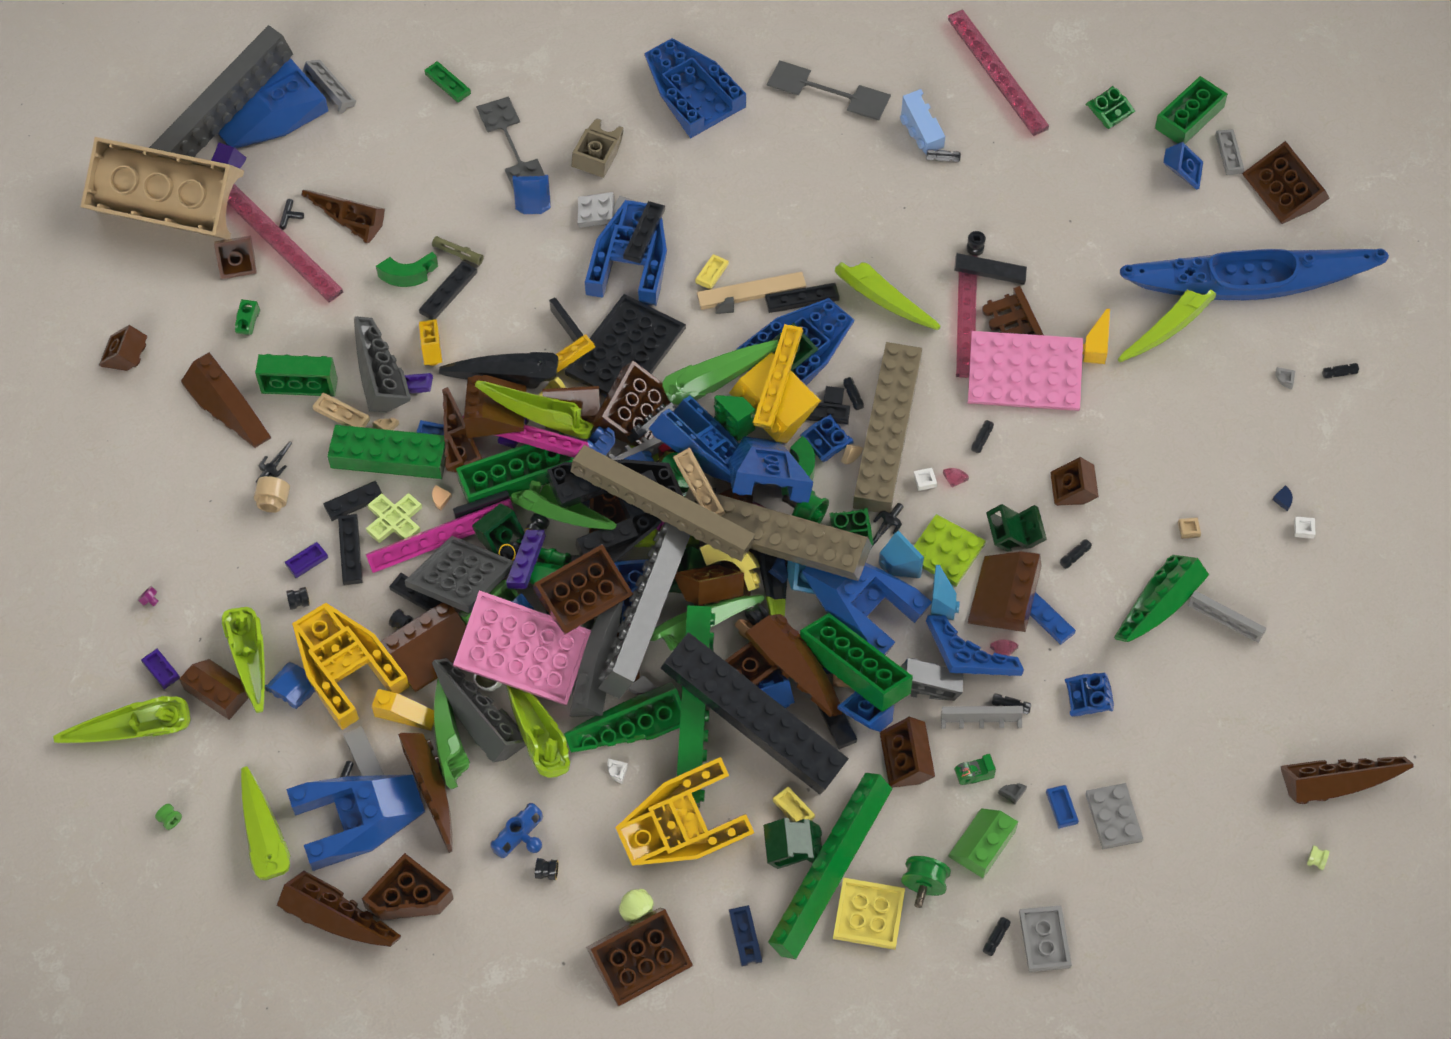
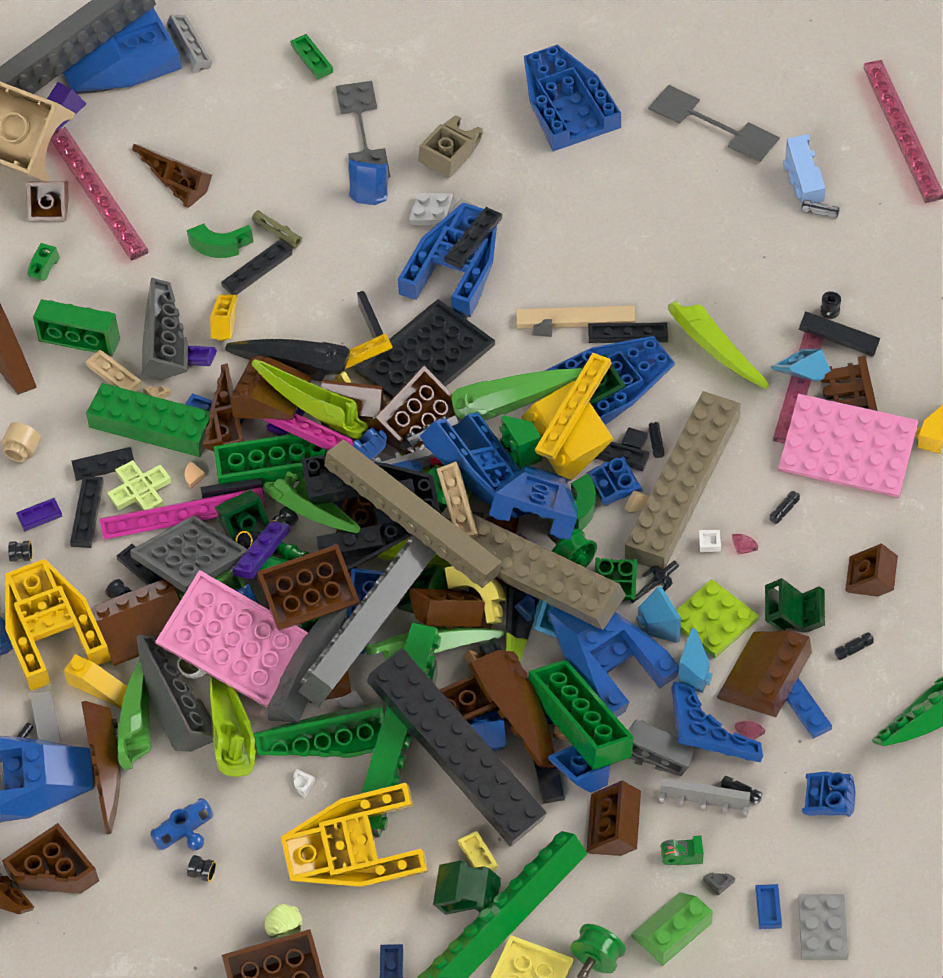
camera: 15 degrees right, 5 degrees down
(270, 468) = (27, 416): black piece -> none
(287, 213) = (113, 165): black piece -> none
(712, 272) = (537, 291): light yellow plate -> none
(968, 301) = (805, 364): none -> dark azure slope

